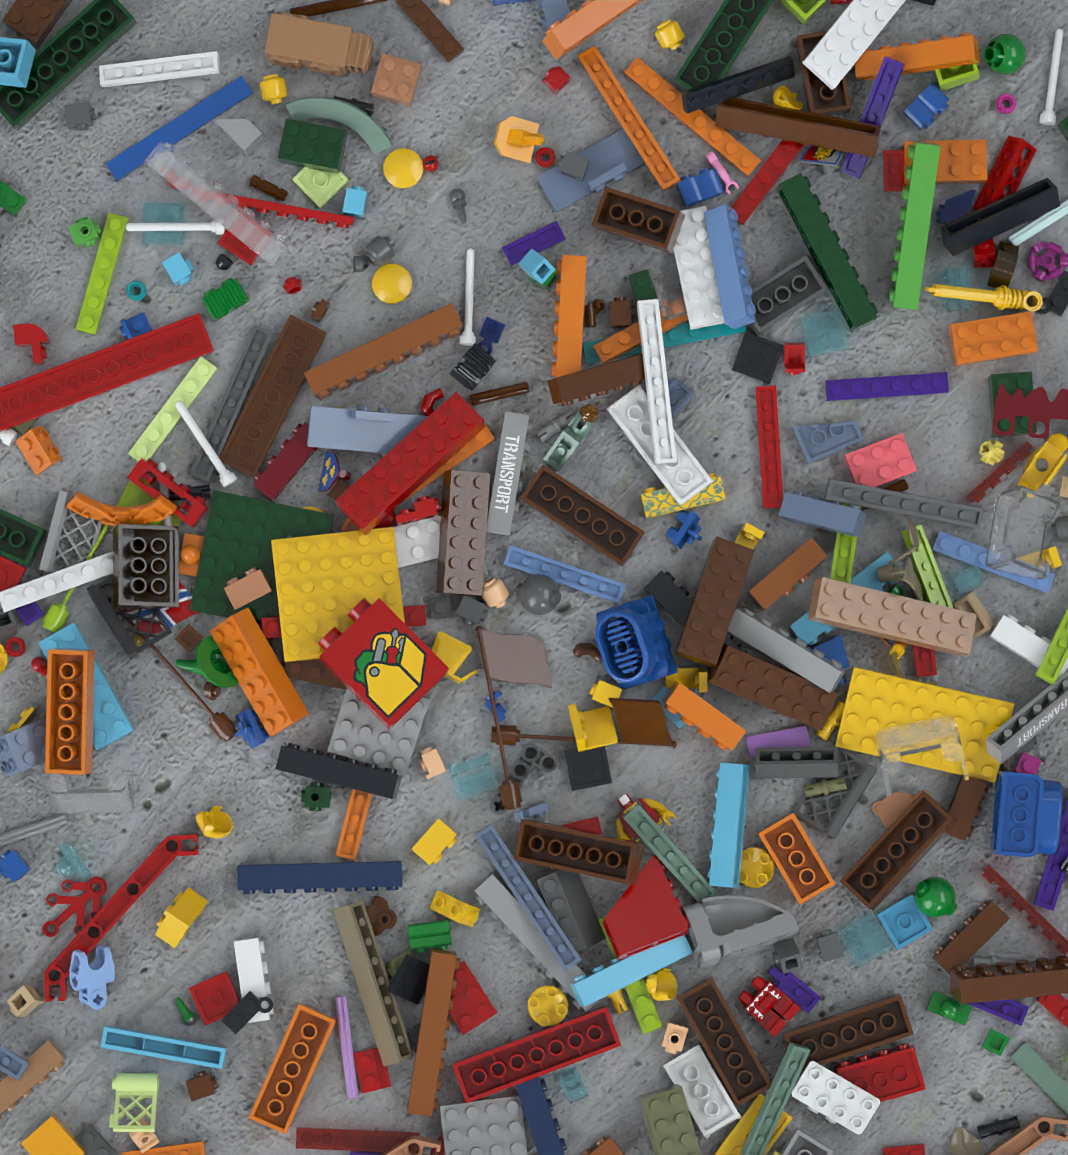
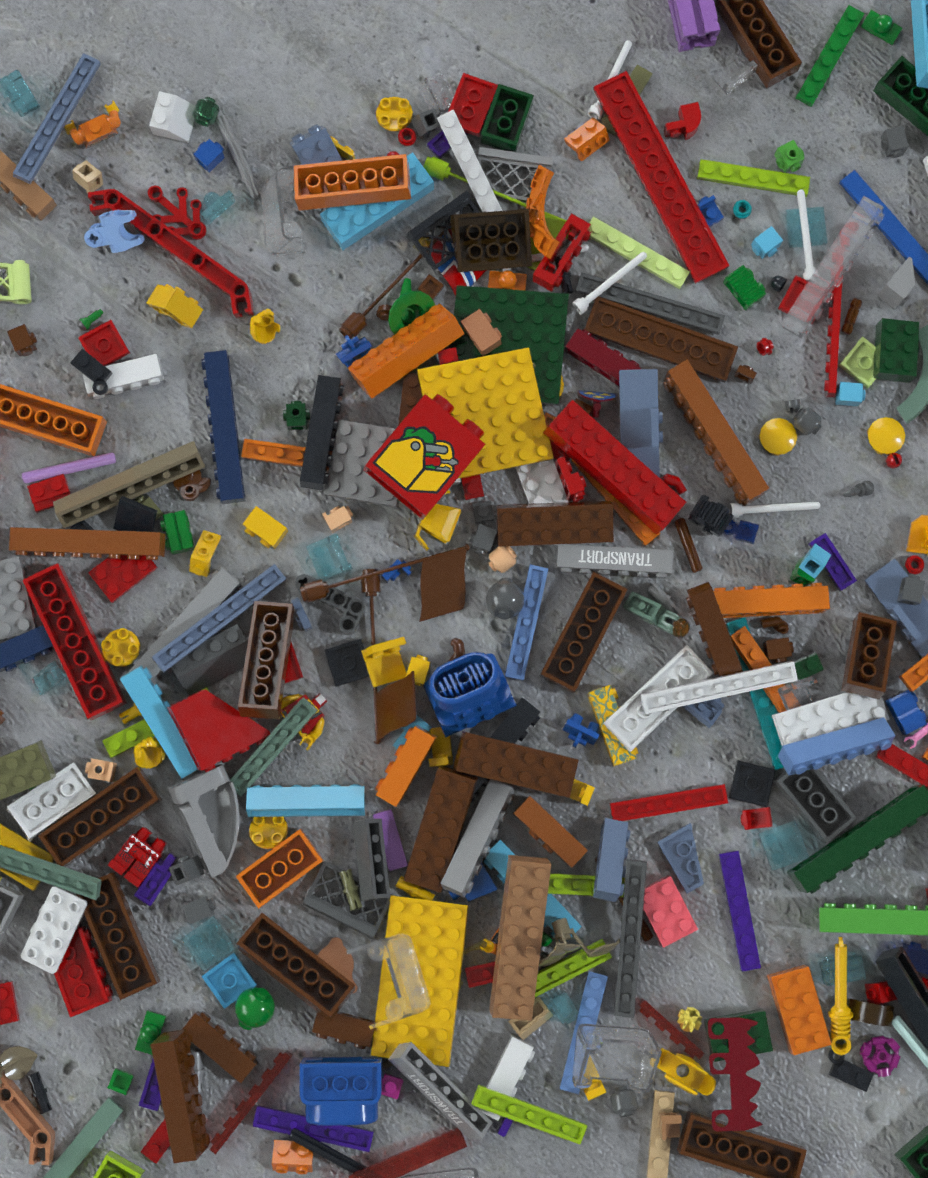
camera: 75 degrees right, 5 degrees down
(164, 1046) = (55, 302): medium azure brick -> none

